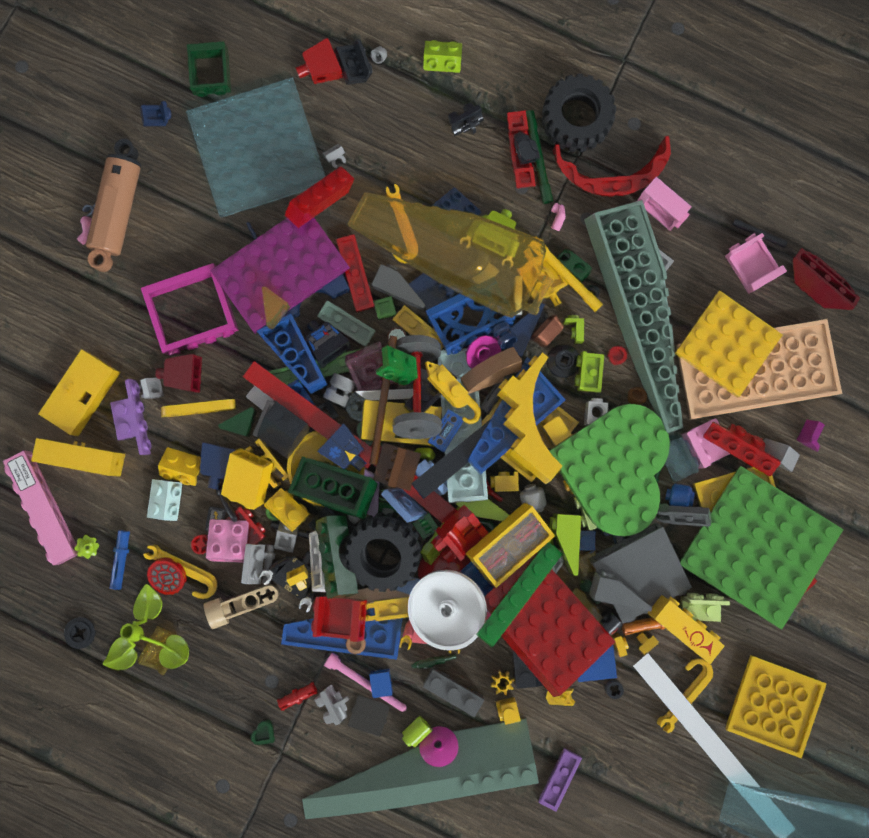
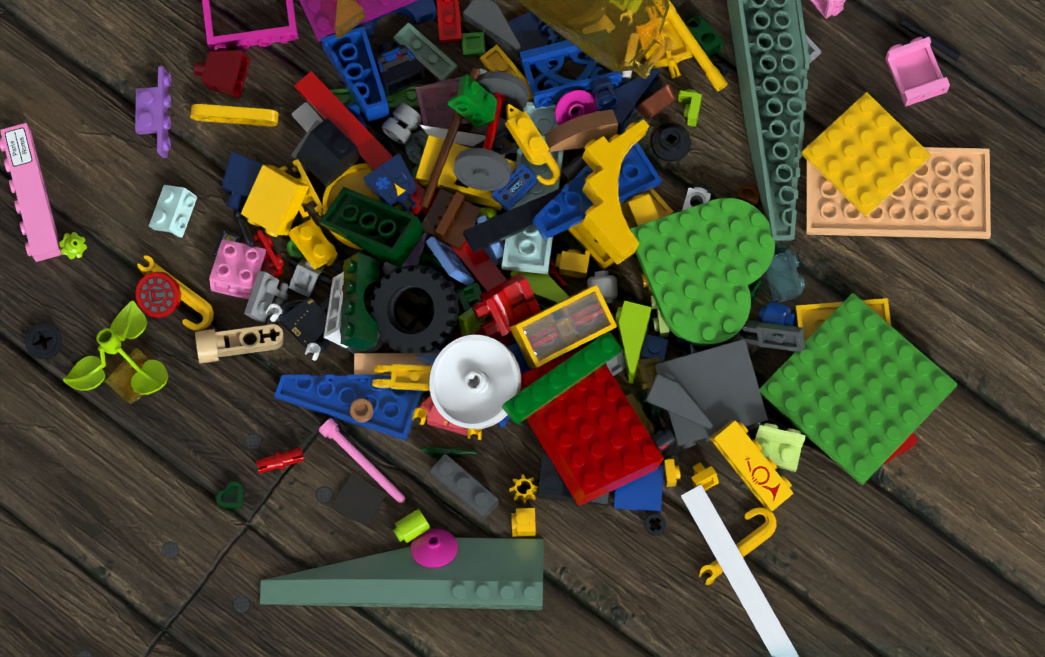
camera: 15 degrees right, 10 degrees down
(78, 457) = (87, 141): yellow brick -> none
(79, 393) = (102, 72): yellow brick -> none
(119, 559) = (110, 259): blue pin -> none
(151, 388) = (185, 83): light grey tile -> none
(179, 466) = (199, 177): yellow bracket -> none
(198, 543) = (203, 264): red wheel -> none
(241, 423) = (279, 140): dark green slope -> none
(298, 577) = (311, 318): yellow tile -> none
(334, 703) = (323, 477): light grey hips -> none
(339, 618) = (348, 374): red panel -> none
(381, 683) = (381, 461): blue panel -> none
(560, 779) = (569, 616): medium lavender tile -> none
(565, 699) = (588, 520): yellow piece -> none
(590, 372) = (698, 158): lime bracket -> none
(617, 355) = (734, 146): red tile -> none
(641, 626) = (701, 455): orange pin -> none
(702, 449) = (821, 263): bright pink bracket -> none
(743, 446) = (860, 273): red bracket -> none
(775, 706) = (843, 579): yellow plate -> none
(782, 452) = (904, 293): light grey slope -> none
(810, 434) = (943, 276): magenta tile -> none
(822, 282) = (990, 103): dark red wedge -> none

